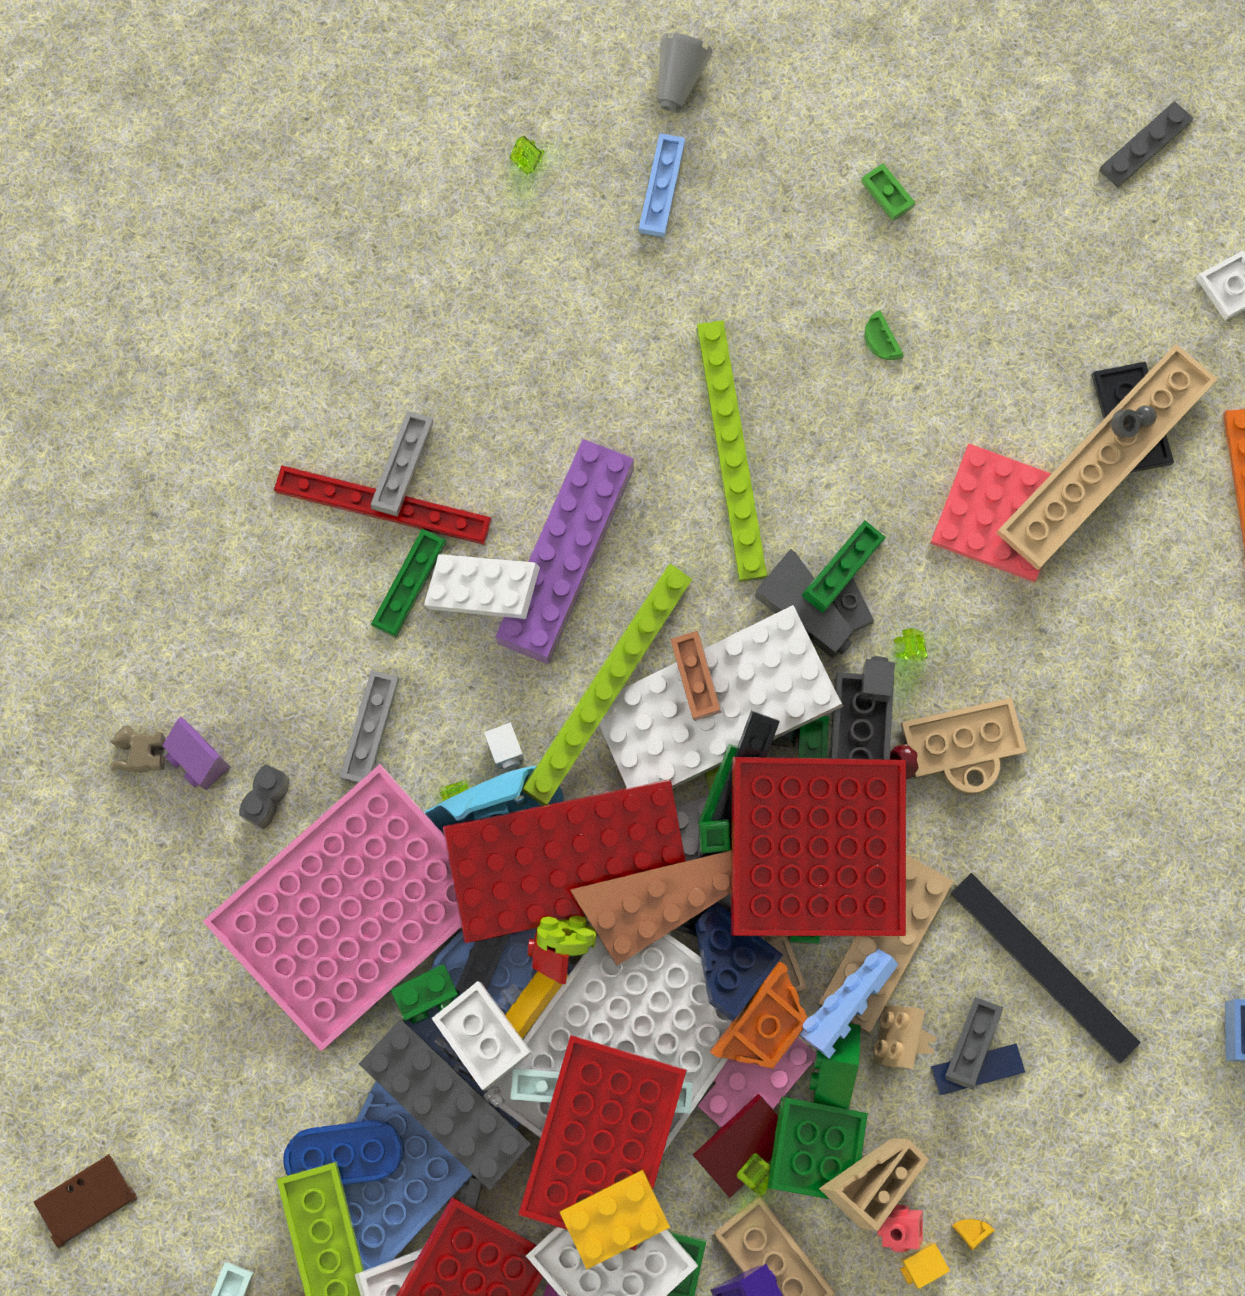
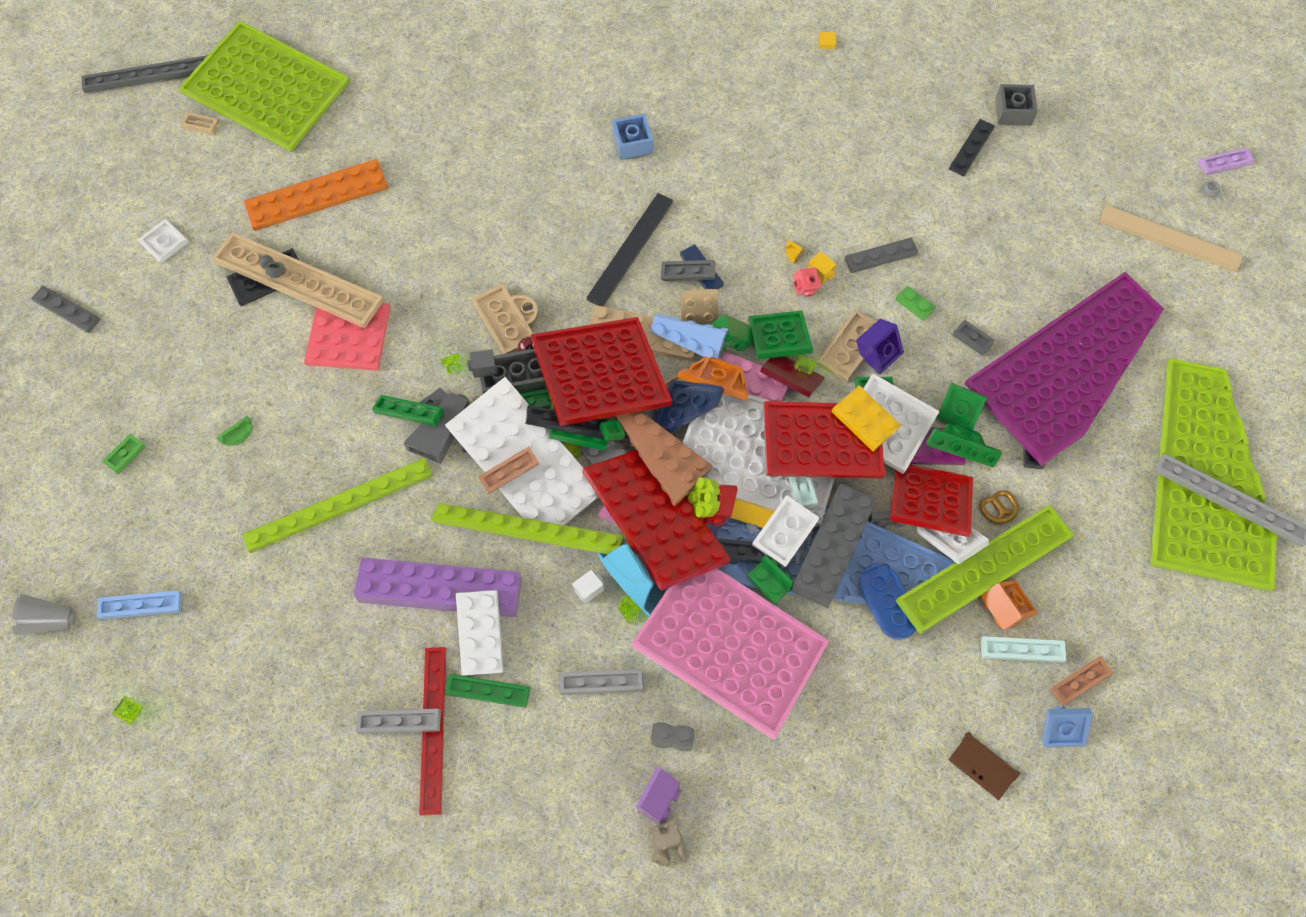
camera: 110 degrees left, 10 degrees down
(876, 1182) = (786, 297): tan wedge -> none

